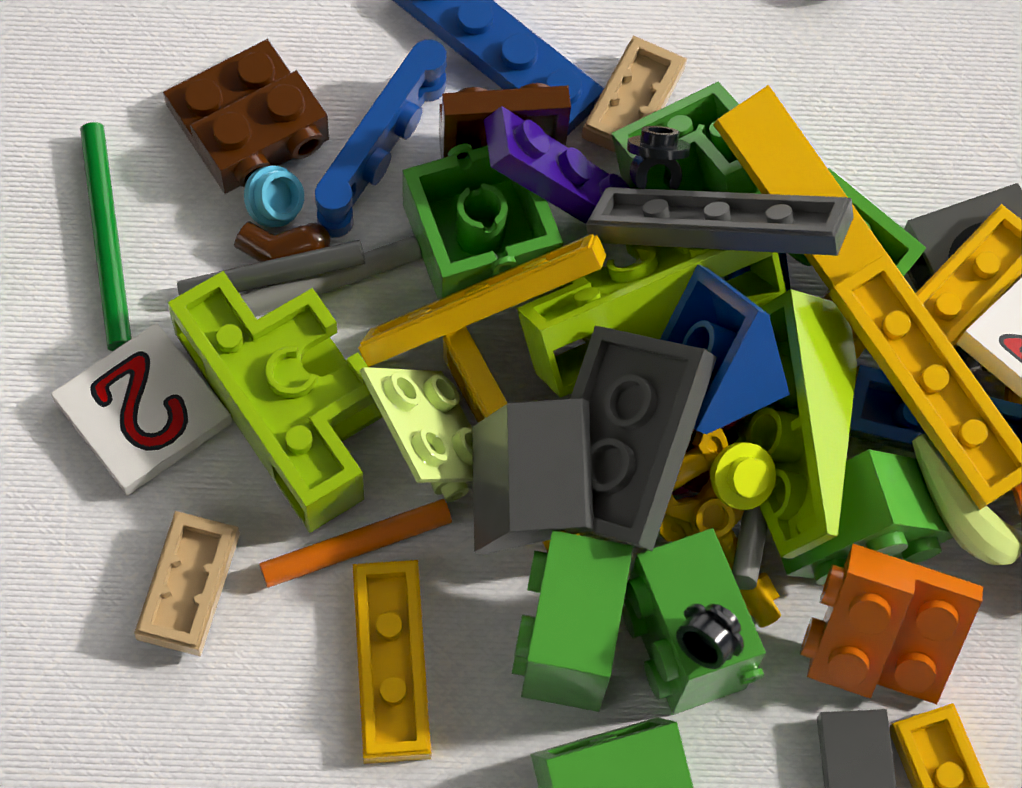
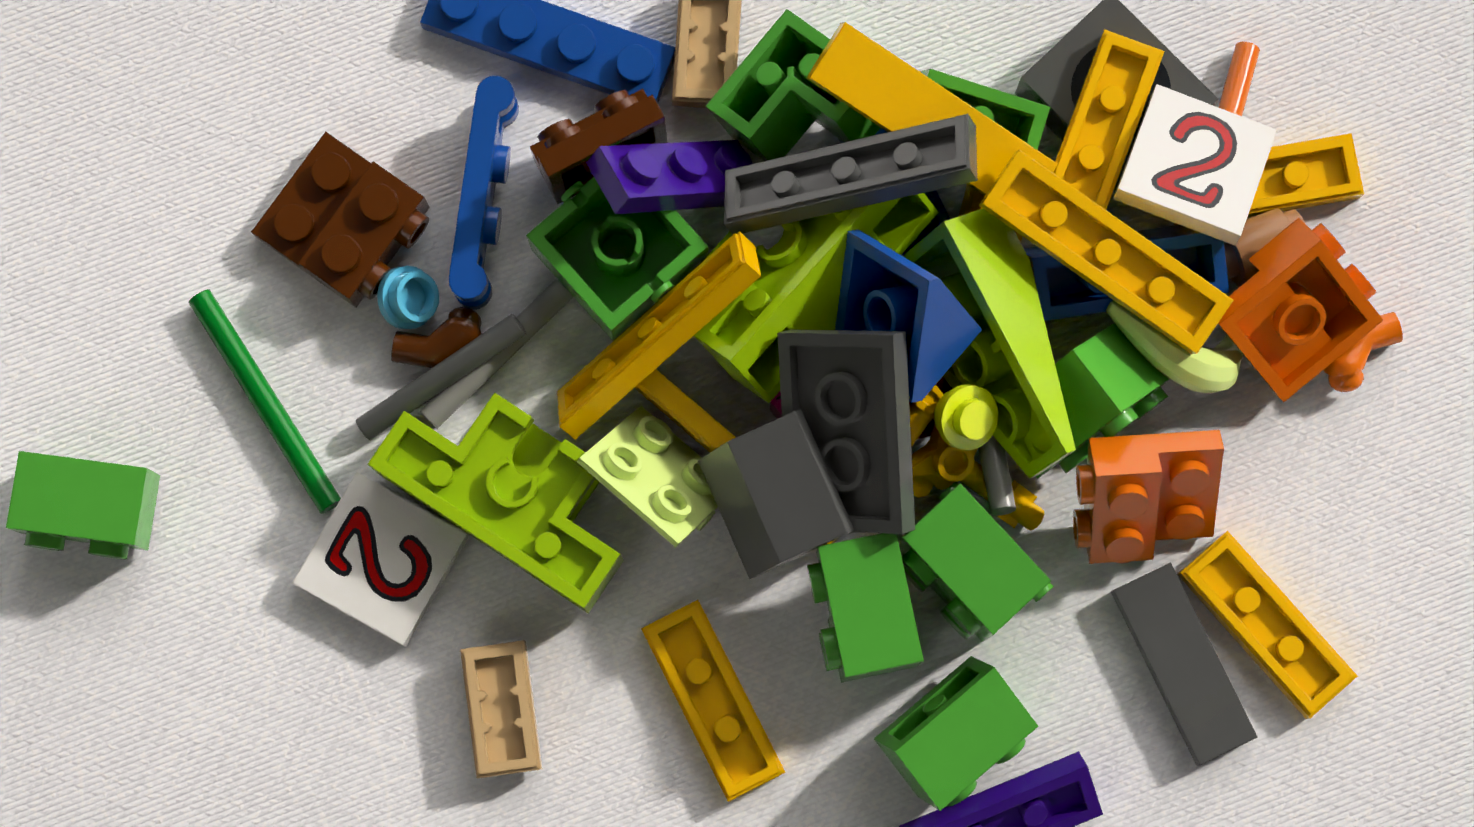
camera: 15 degrees left, 15 degrees up
(355, 543) = (634, 605): orange bar -> none
(655, 147) = (760, 117): black plate -> none
(710, 635) = (998, 591): black plate -> none

